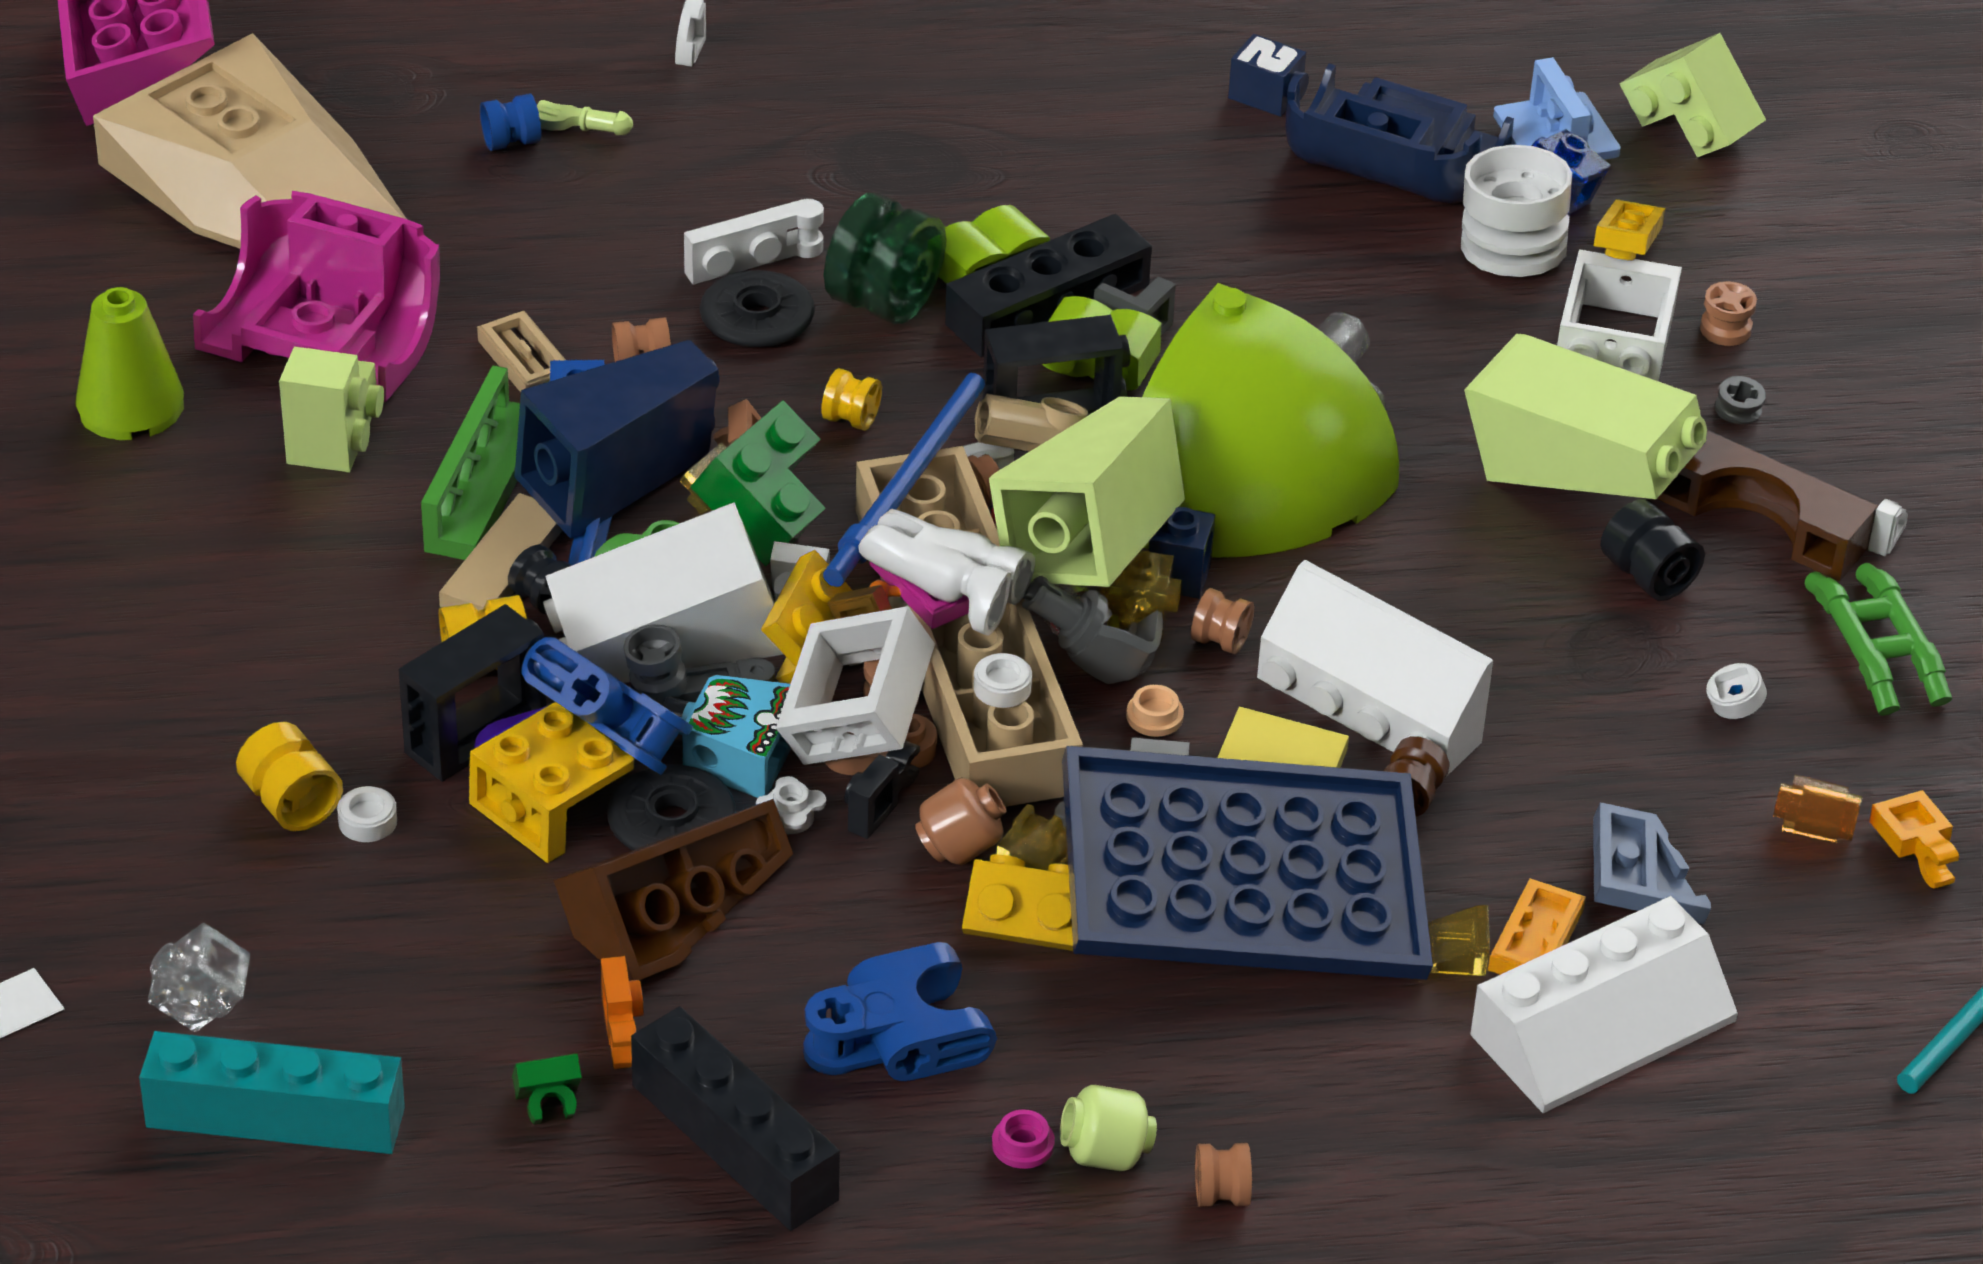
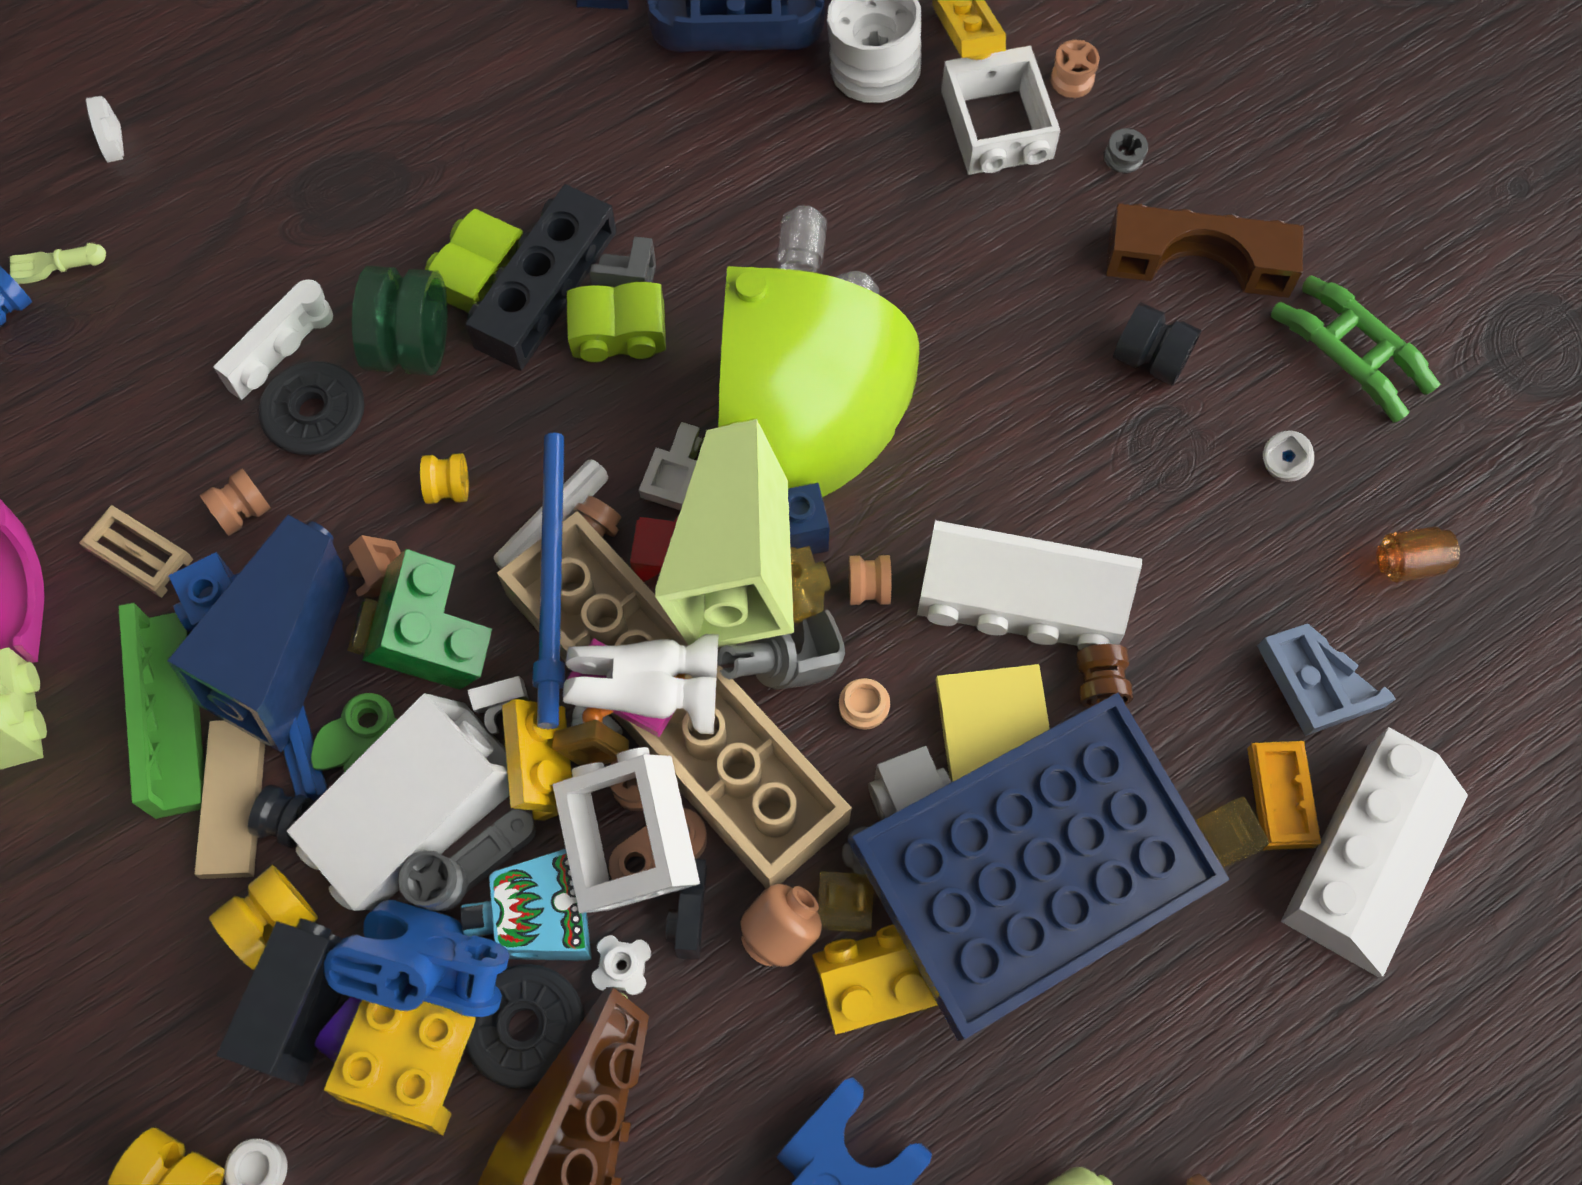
camera: 25 degrees left, 25 degrees up
(1002, 680) = (751, 773): white tile -> none
(1023, 423) = (623, 444): tan piece -> none
(1058, 342) = (607, 388): black window -> none
(1580, 422) = (1055, 249): yellowish green slope -> none
(1887, 527) = (1312, 228): white tile -> none
(1917, 827) = (1494, 536): light orange plate -> none

